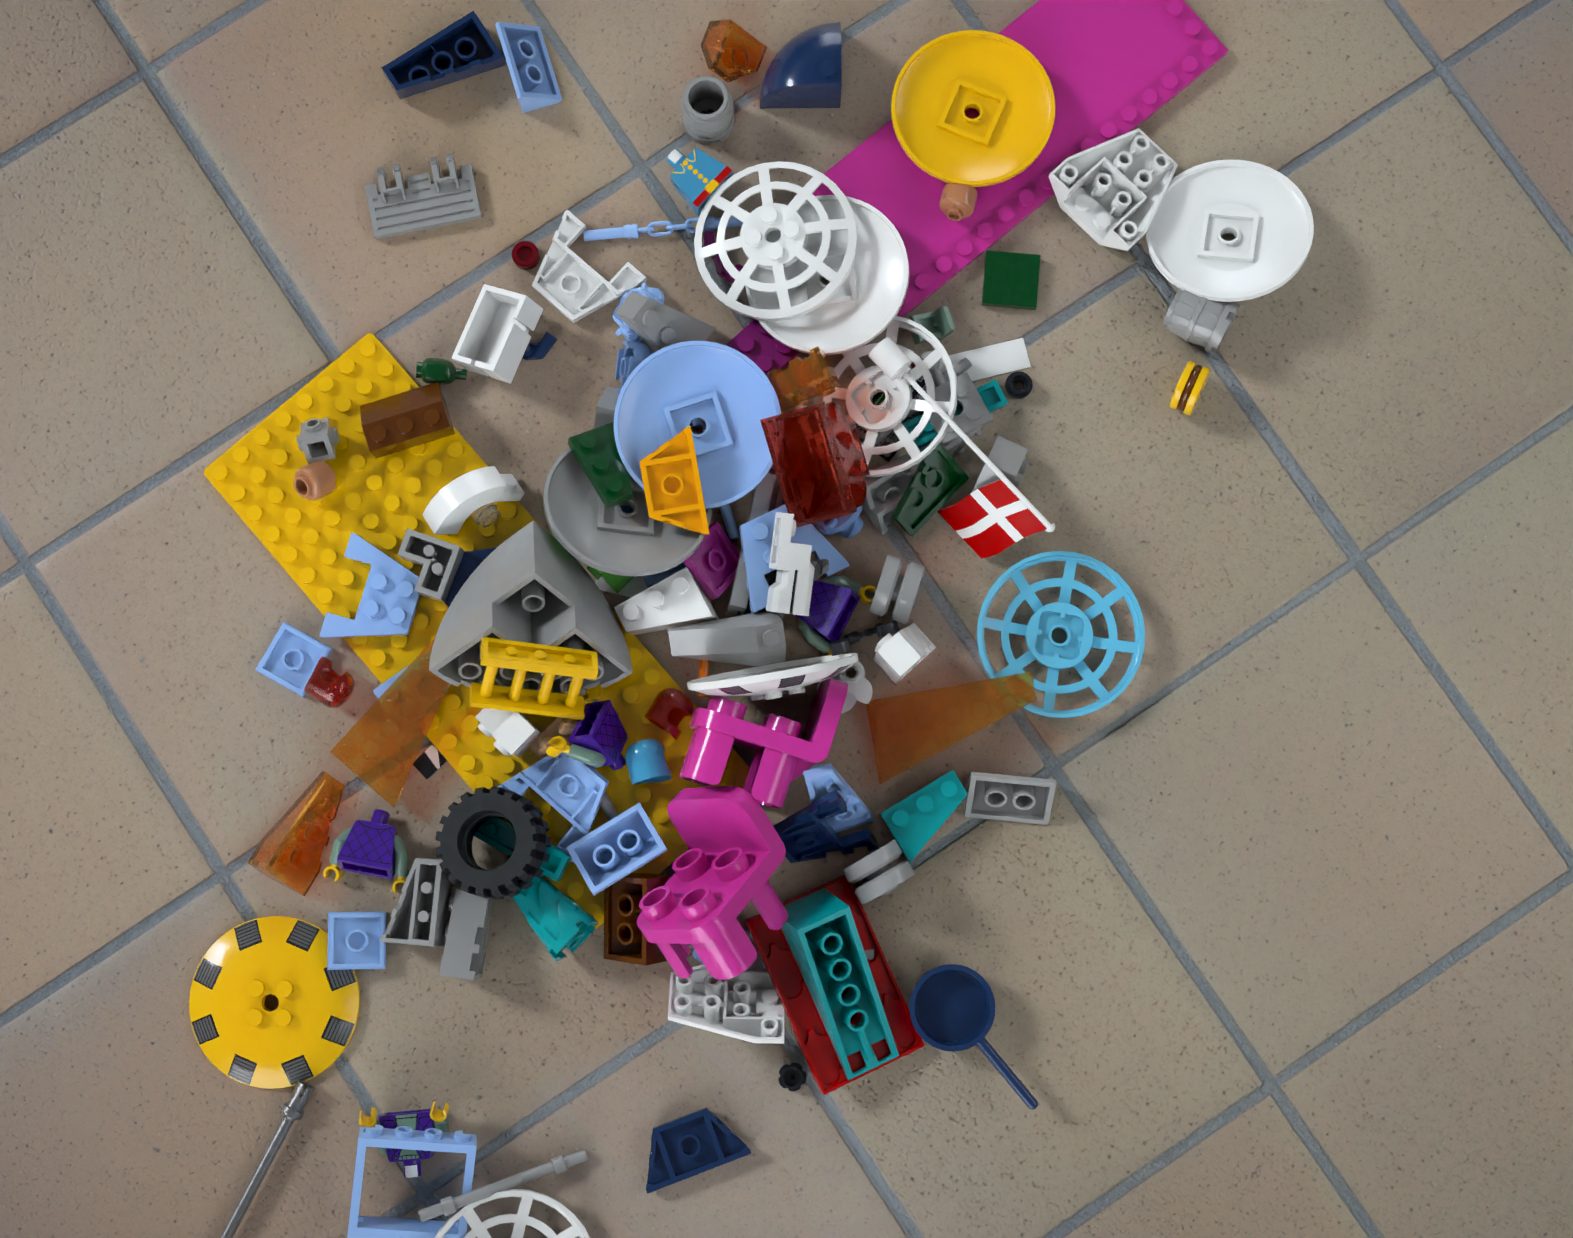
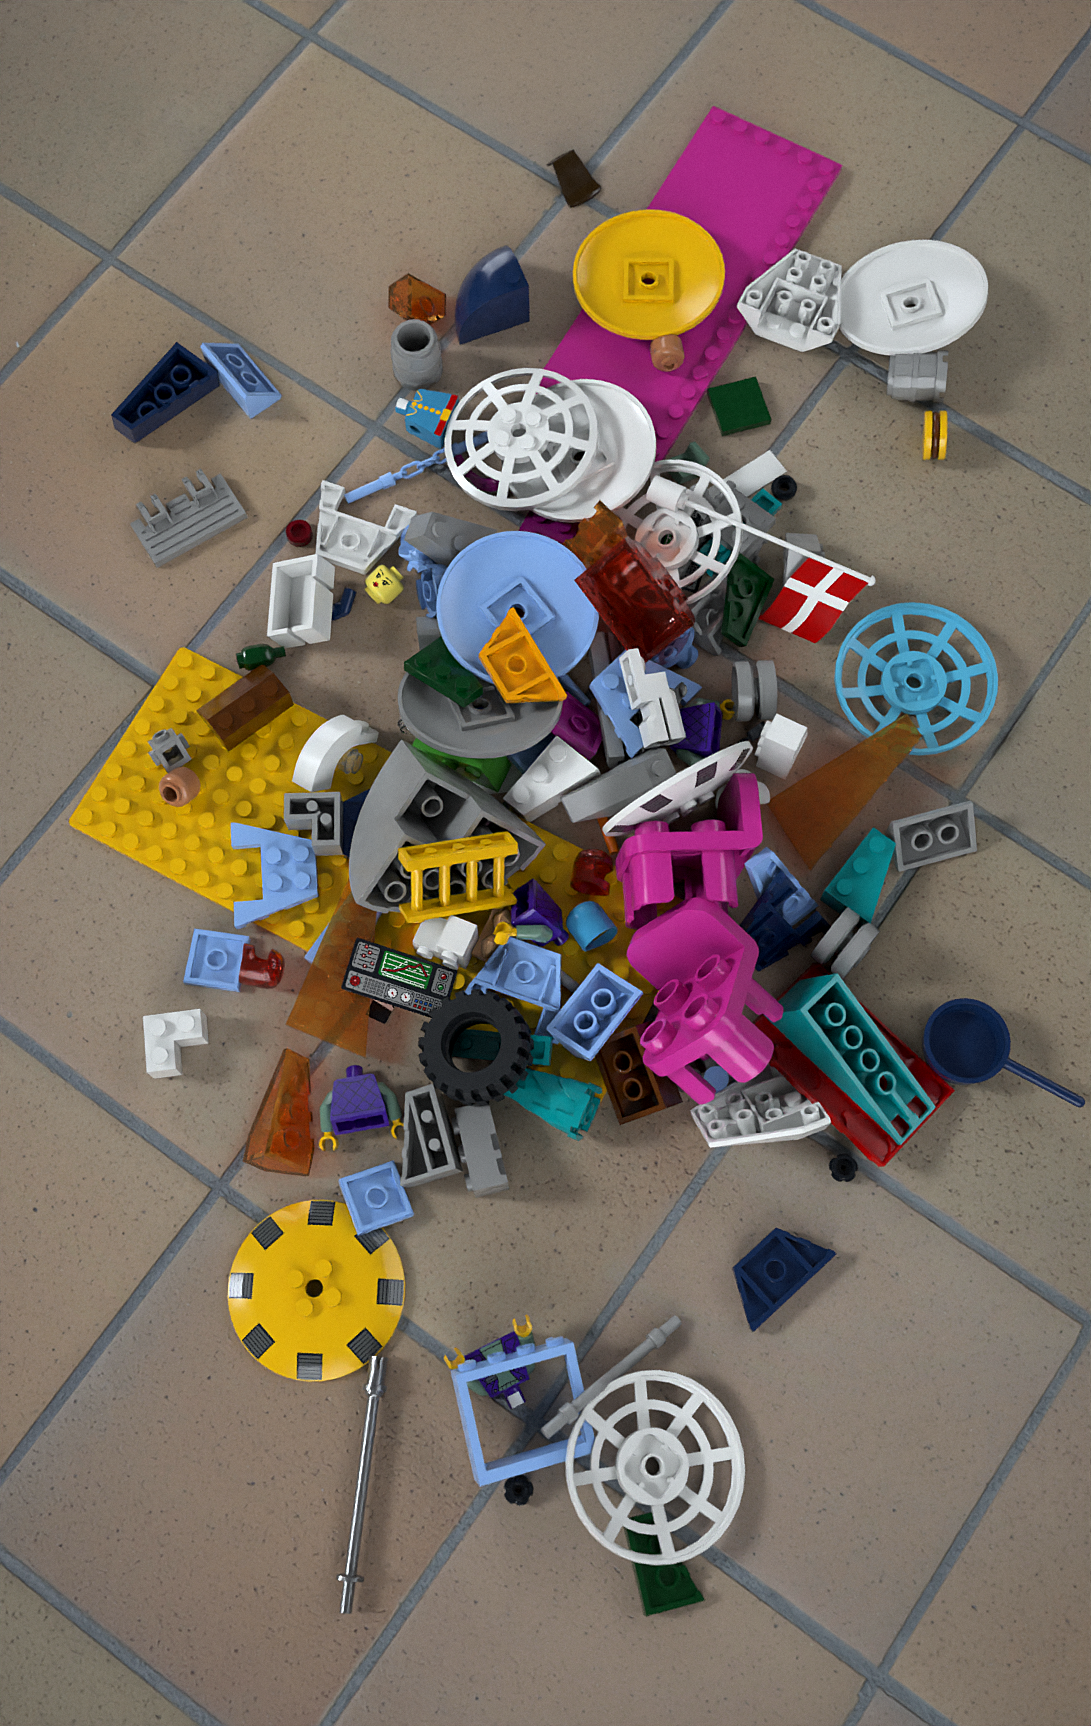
camera: 20 degrees left, 10 degrees down
(217, 719) = (165, 1036): none -> white brick
(450, 745) = (397, 978): none -> sticker
(586, 342) = (384, 584): none -> light yellow head

